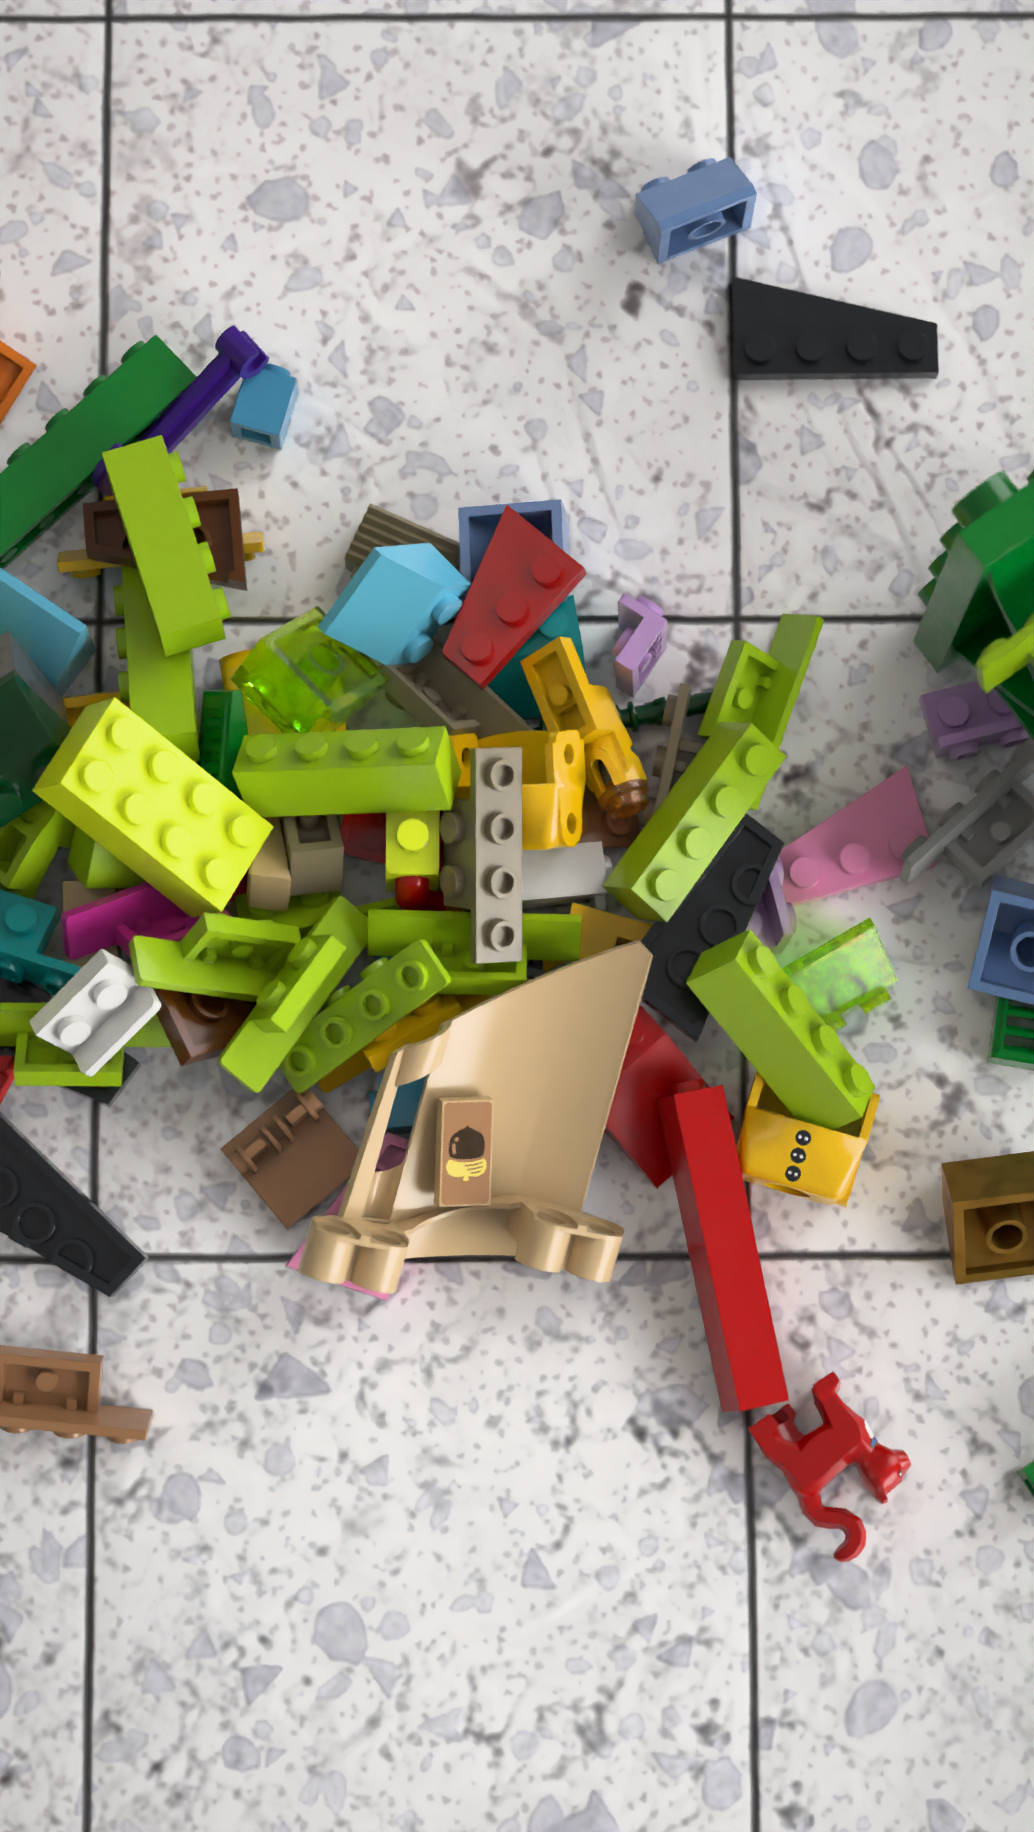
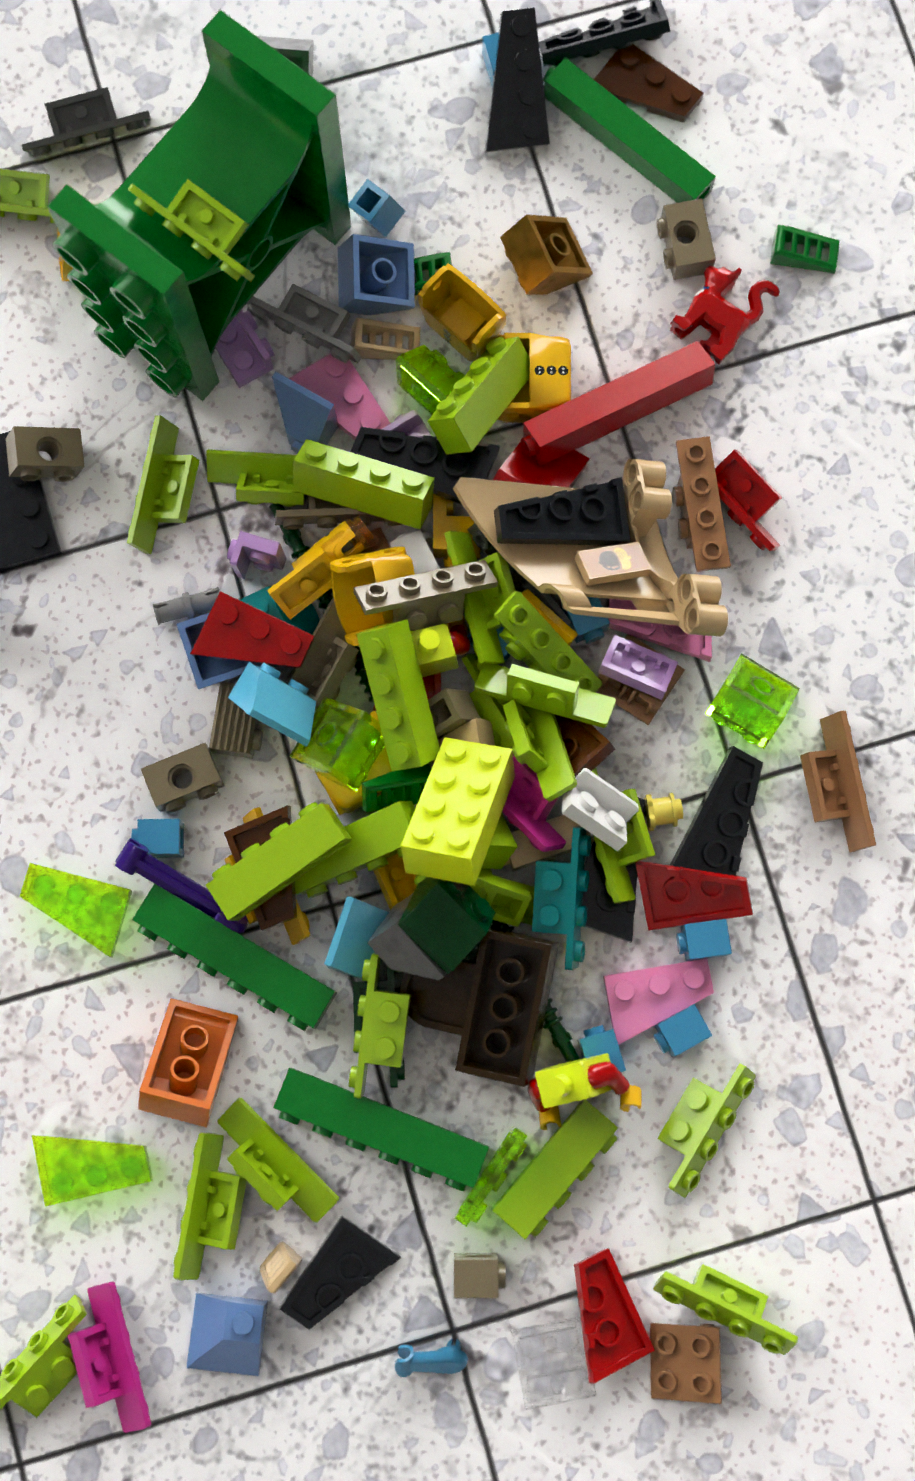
camera: 105 degrees left, 0 degrees up
(84, 1127) = (662, 811): none -> light yellow brick
(208, 275) = (79, 903): none -> clear neon green wing
(208, 1312) = (752, 701): none -> clear neon green slope
(301, 1147) = (638, 667): none -> lavender bracket
(346, 430) = (163, 774): none -> dark tan brick
(524, 1323) = (700, 505): none -> medium nougat bracket
(534, 1394) = (747, 497): none -> red bracket
(550, 1119) = (567, 518): none -> black wing
(596, 533) = (185, 606): none -> light grey pin
(788, 544) = (163, 487): none -> lime bracket
(831, 770) = (304, 413): none -> medium blue slope
(886, 416) = (61, 444): none -> dark tan brick
(929, 1618) = (791, 258): none -> green slope
(930, 1047) = (460, 312): none -> yellow piece
(936, 1453) = (689, 221): none -> dark tan brick
(944, 891) = (385, 329): none -> tan slope

